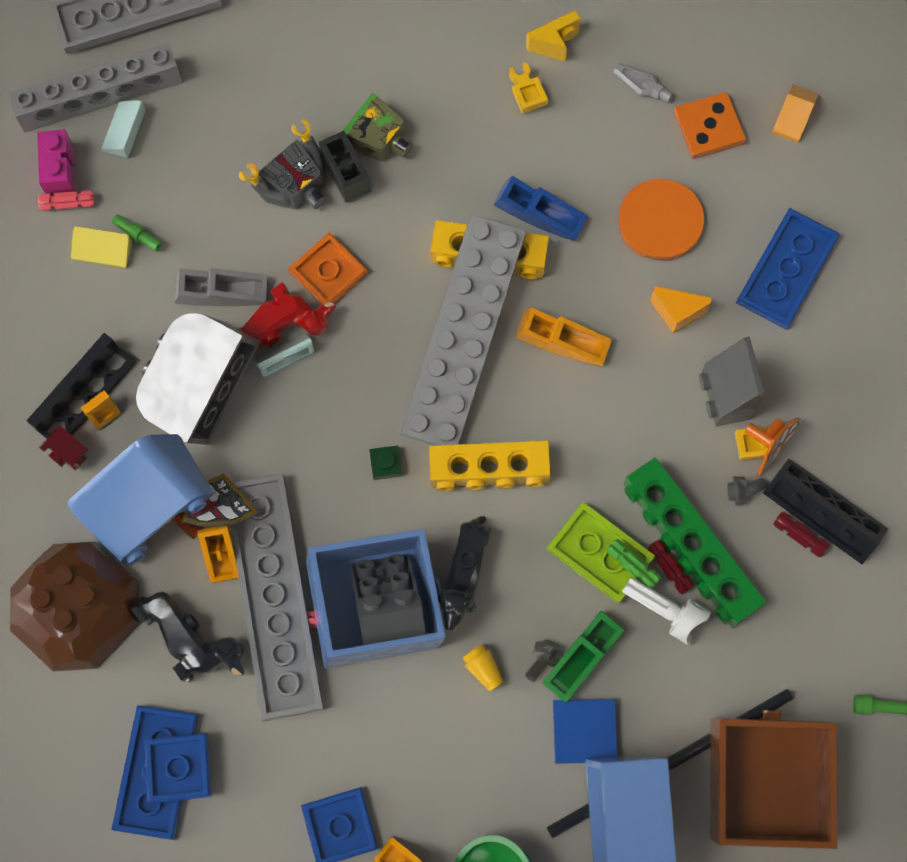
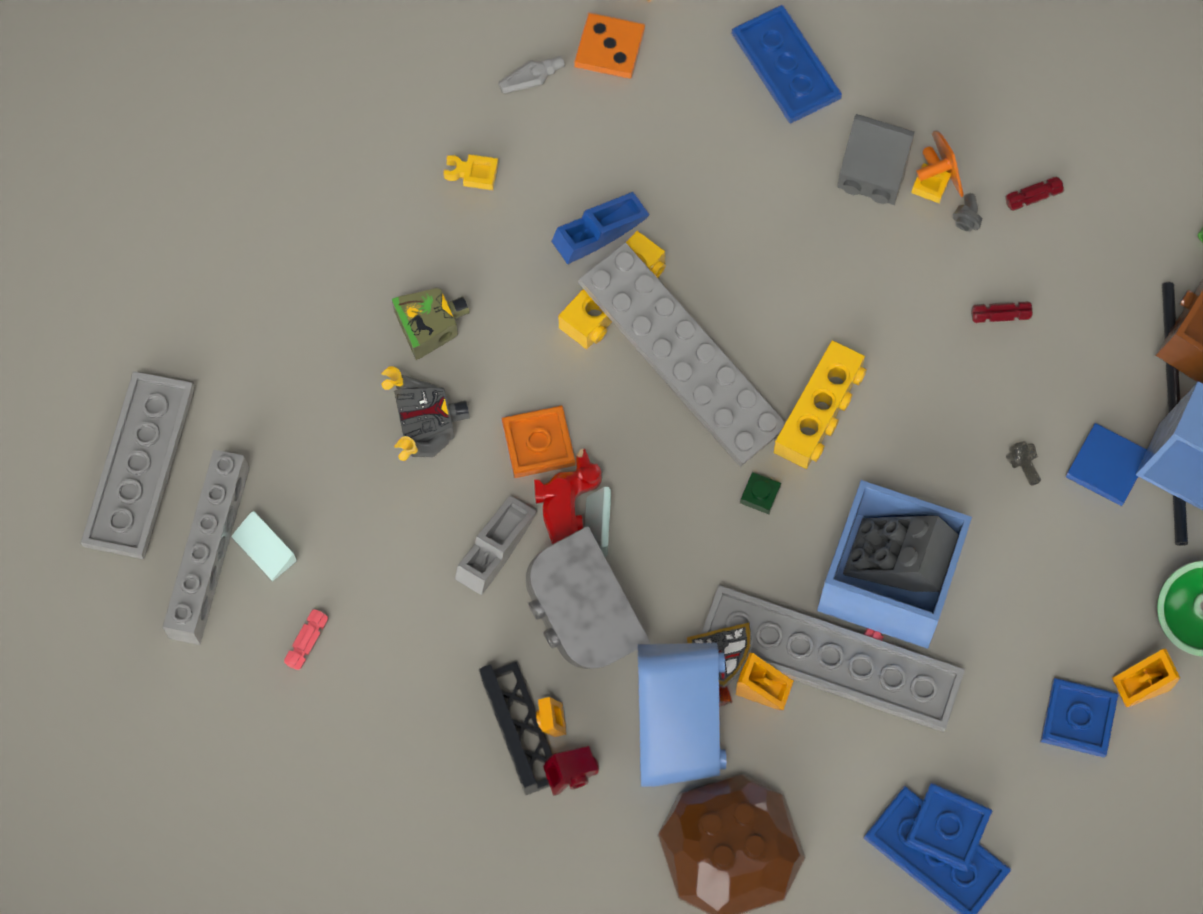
camera: 60 degrees left, 5 degrees down
(54, 171) = (266, 629): dark pink piece -> none
(101, 247) = (378, 632): light yellow slope -> none
(137, 233) = (385, 591): bright green bar -> none
(184, 640) = (829, 758): black animal -> none
(345, 166) = (449, 364): pearl dark grey brick -> none
(464, 572) = (909, 475): black animal -> none
(483, 667) = (1003, 513): yellow cone -> none
(549, 38) = (438, 122): yellow slope -> none
(562, 337) = (735, 278): light orange slope -> none
(583, 656) = (1042, 424): green slope -> none
(584, 547) = (956, 360): lime plate -> none
(633, 563) = (986, 335): bright green axle -> none
(654, 477) = (1066, 266): green brick -> none
(661, 219) = (674, 135): orange tile -> none
(679, 307) = (769, 169): light orange slope -> none
(682, 618) = (1057, 324): white piece -> none
(824, 512) = (1026, 163): black fence -> none

